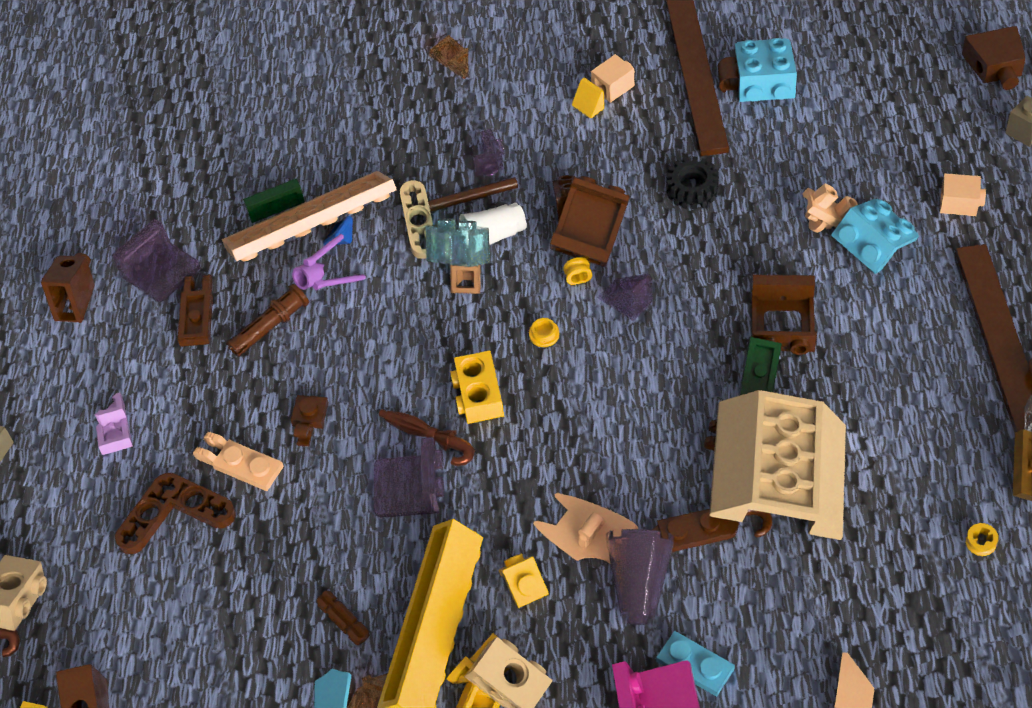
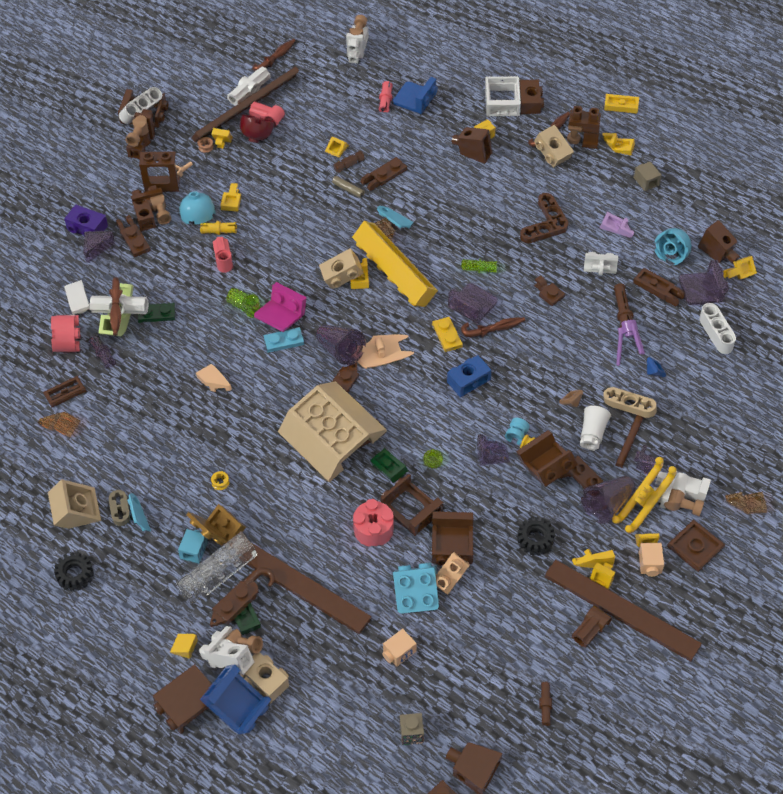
camera: 125 degrees right, 0 degrees up
(93, 248) = (742, 268): none -> yellow plate
(106, 325) = (671, 242): none -> medium azure cylinder
(210, 388) = (600, 263): none -> white hips
(219, 212) = (717, 328): none -> white beam
(240, 461) = (550, 255): light nougat hinge -> none
(274, 200) = (707, 347): dark green plate -> none
(303, 217) = (676, 358): light nougat plate -> none
(332, 526) = (478, 265): none -> clear neon green axle
(343, 617) = (431, 244): reddish brown axle -> none
(457, 243) = (588, 396): clear light blue piece -> none
(480, 387) = (498, 356): yellow brick -> none
(489, 476) = (447, 334): none -> yellow plate
(501, 113) = (682, 488): none -> white hips
(523, 579) = (383, 308): yellow bracket -> none
(528, 384) = (478, 375): none -> blue brick
(544, 332) = (505, 406): yellow plate -> none
(545, 118) = (646, 496): none -> yellow piece
(552, 64) = (695, 545): none -> reddish brown tile
(571, 291) = (517, 429): none -> medium azure wheel
(575, 149) = (607, 497): none -> cone
(663, 115) = (590, 560): none -> yellow slope
(674, 101) = (603, 574): none -> yellow tile
(695, 348) = (433, 458): none -> clear neon green tile
(765, 69) = (584, 633): medium azure bracket -> none
(783, 246) = (452, 534): none -> reddish brown panel
(852, 324) = (373, 523): none -> coral brick
(866, 57) = (545, 703): none -> reddish brown bar

